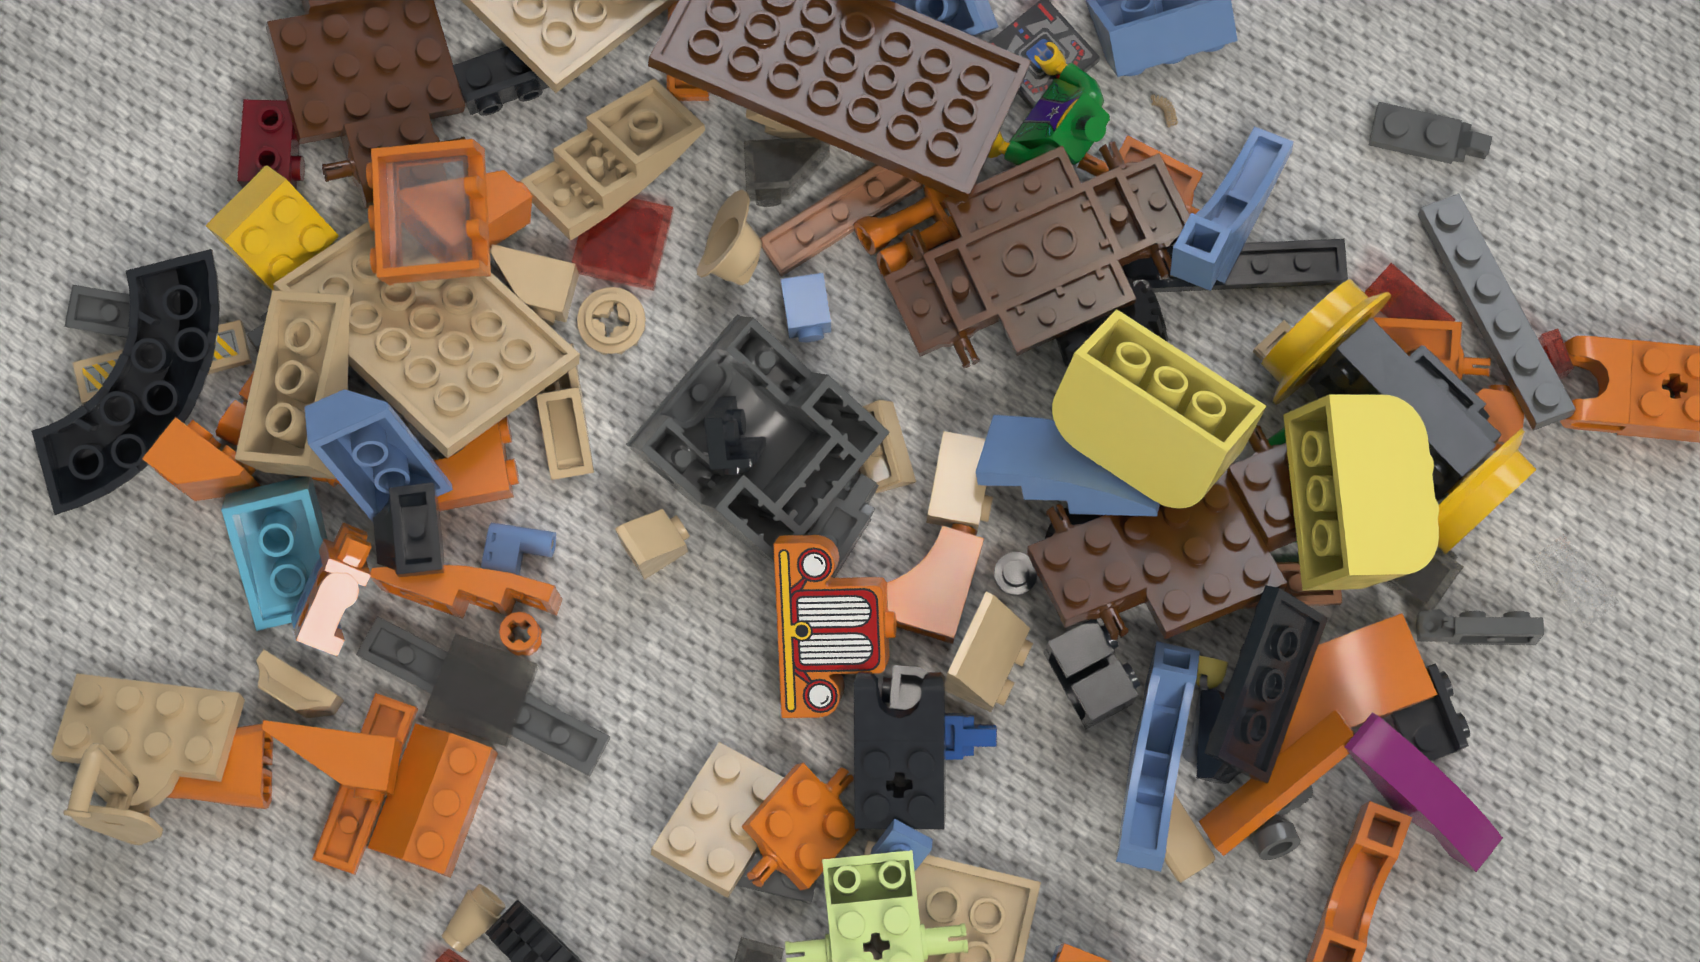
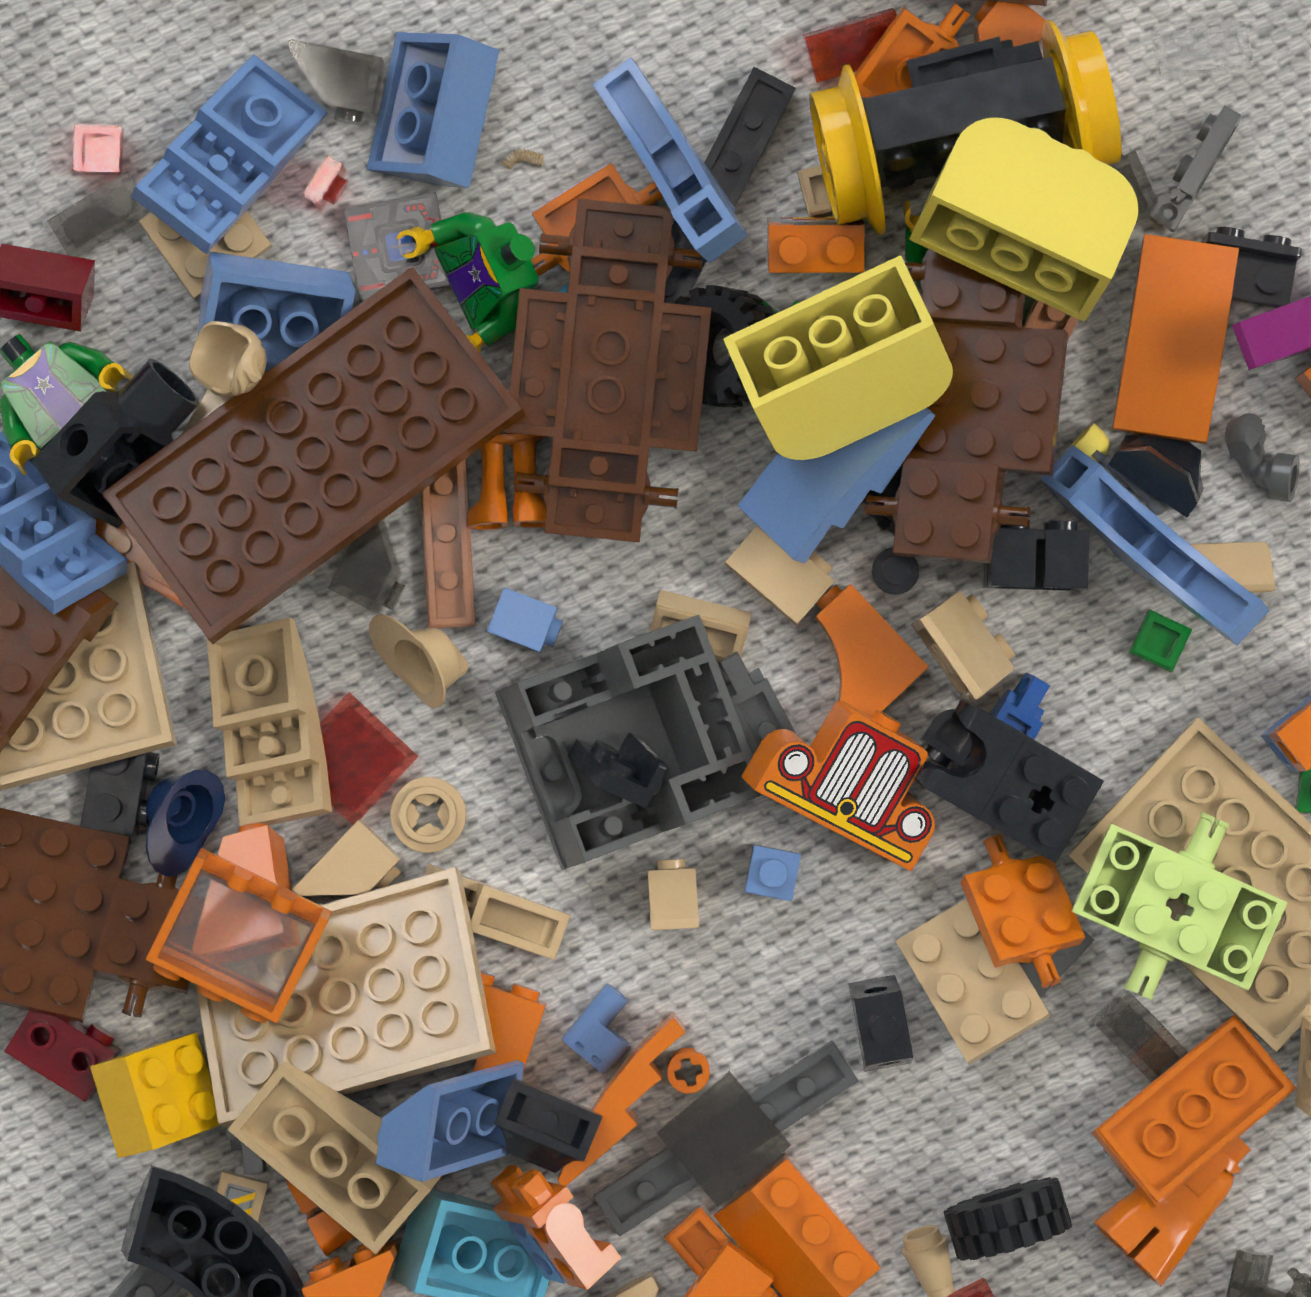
camera: 60 degrees left, 10 degrees up
(505, 129) = (180, 819): none -> dark blue piece
(643, 766) = (881, 1023): none -> black torso
(718, 609) = (772, 872): none -> medium blue brick
(904, 838) = (1092, 826): medium blue plate -> none
(1085, 818) = (1160, 640): none -> green tile
(1234, 357) = (814, 245): none -> orange brick
(1266, 684) = (1144, 405): black plate -> none
(1292, 774) = (1236, 444): orange tile -> none

